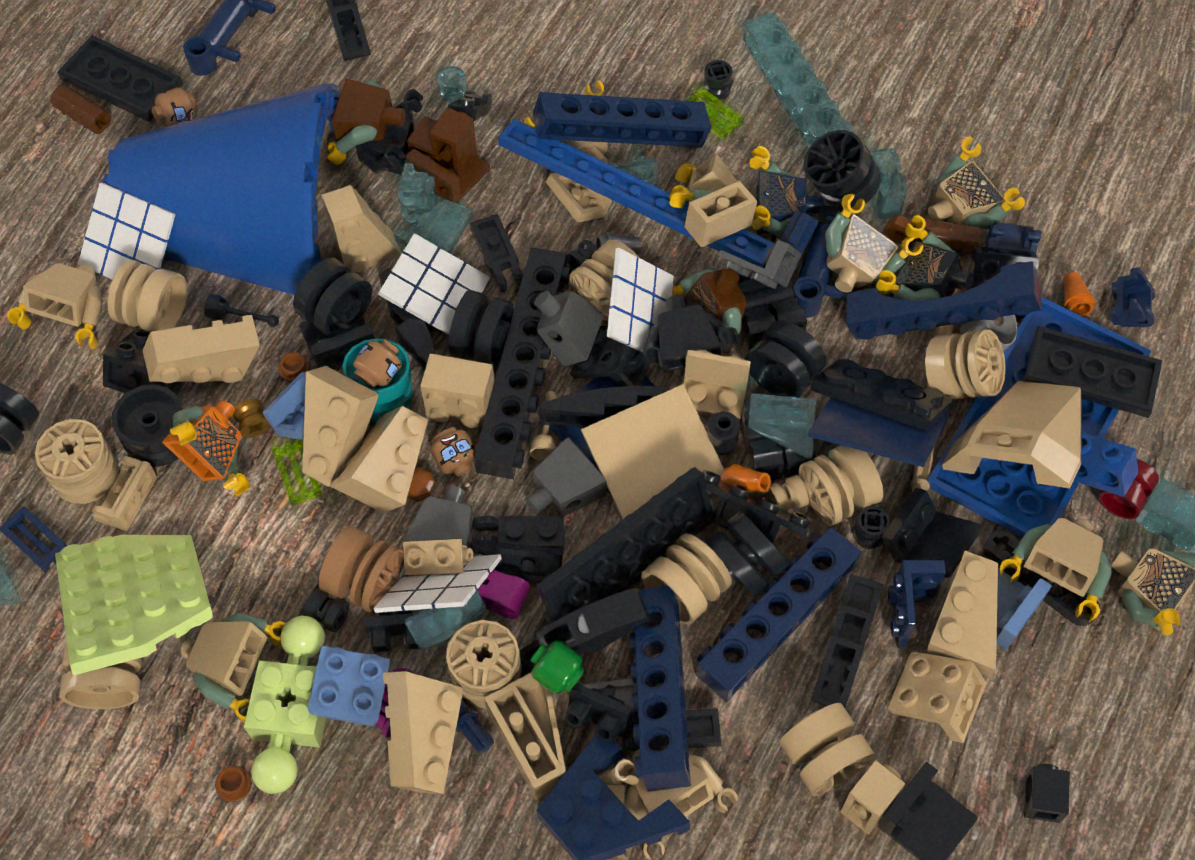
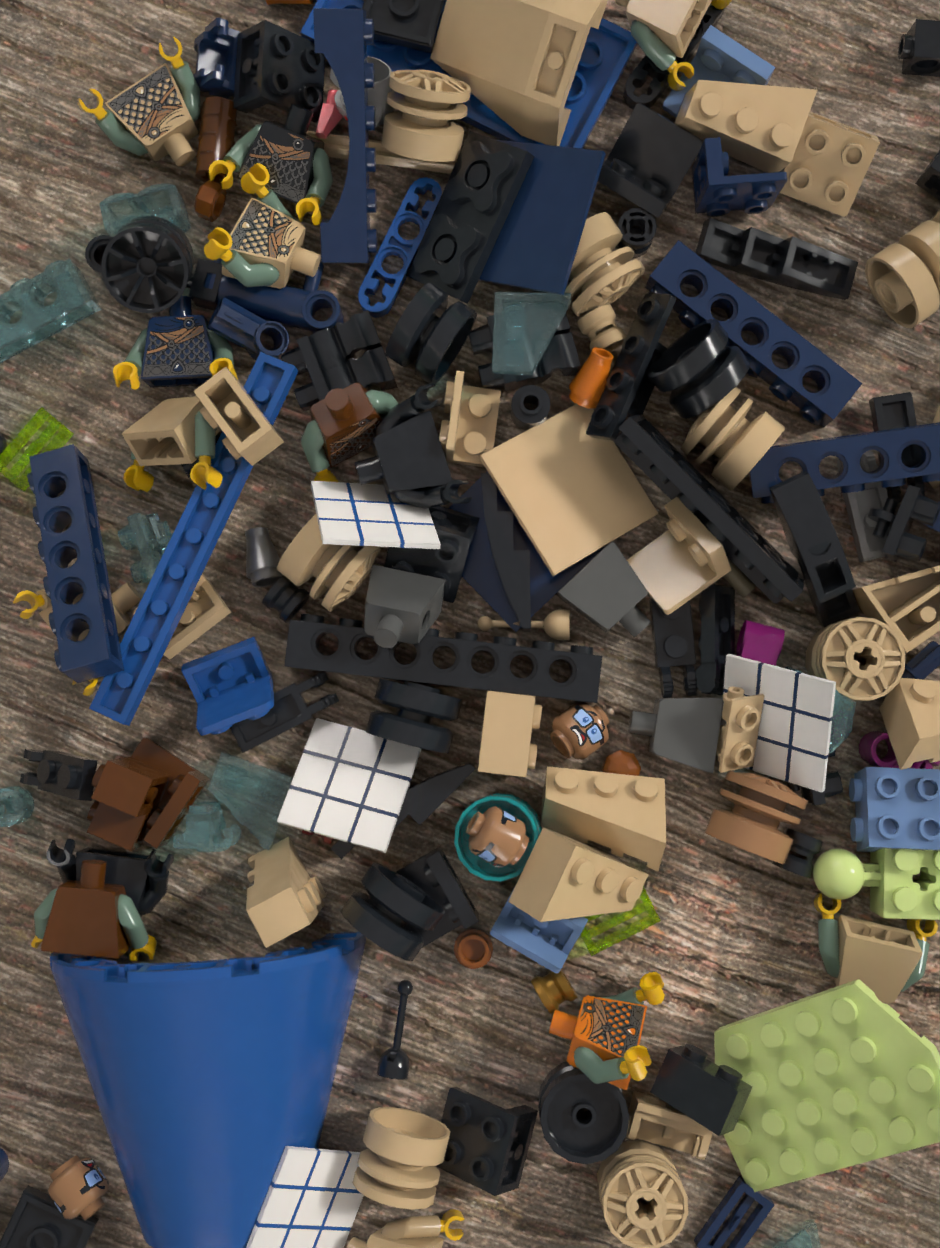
camera: 90 degrees left, 25 degrees up
(148, 509) = (701, 1089): none -> black brick
(202, 353) = (487, 1068): tan wedge -> none
(521, 218) = (230, 686): none -> blue bracket
(556, 667) = (875, 571): green head -> none
(575, 526) = (680, 560): none -> tan bracket
(779, 269) = (324, 358): dark grey bracket -> none
(864, 350) = (397, 246): none -> blue beam

